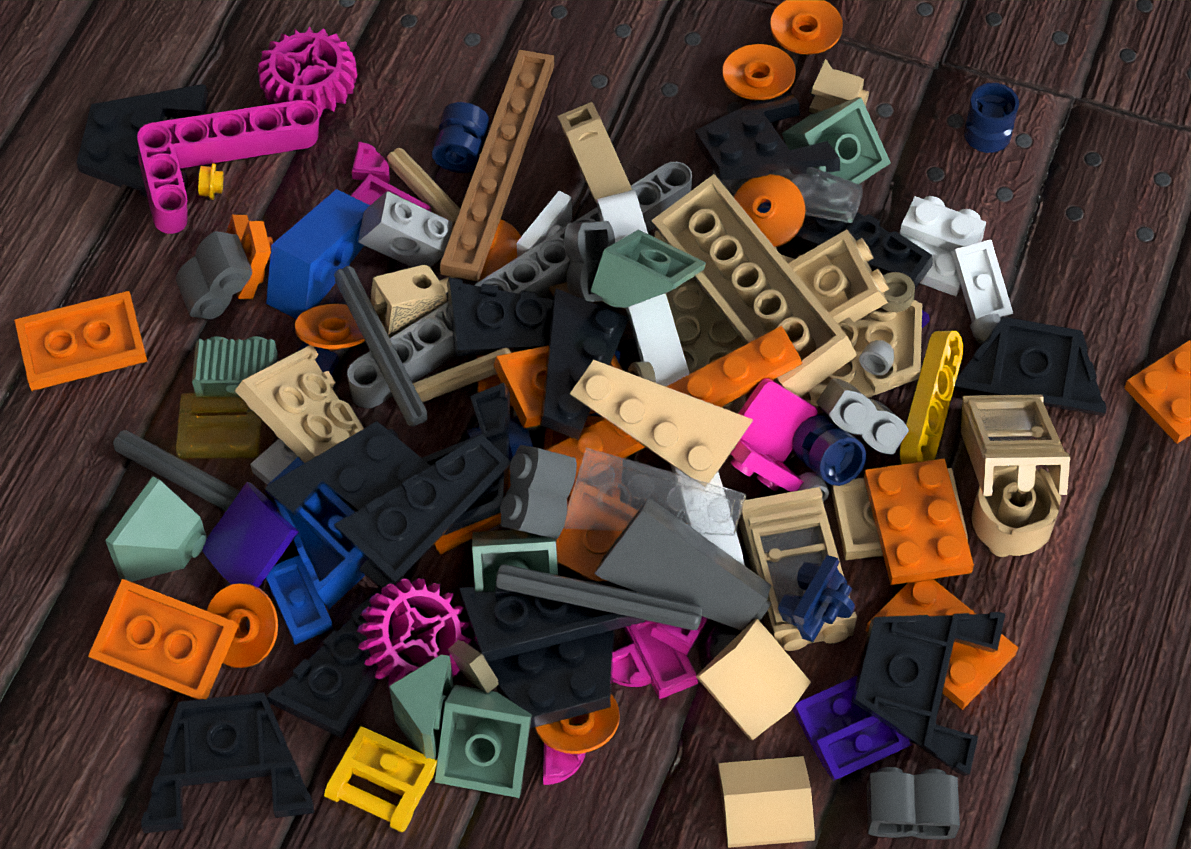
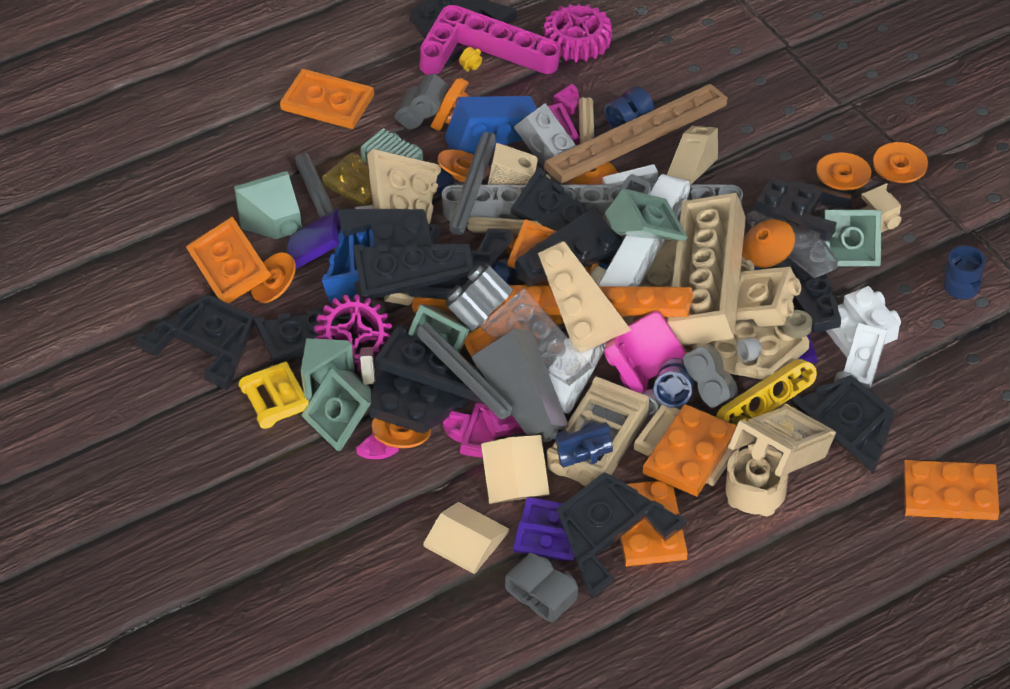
camera: 40 degrees right, 10 degrees down
(298, 600) = (311, 291): blue plate -> none

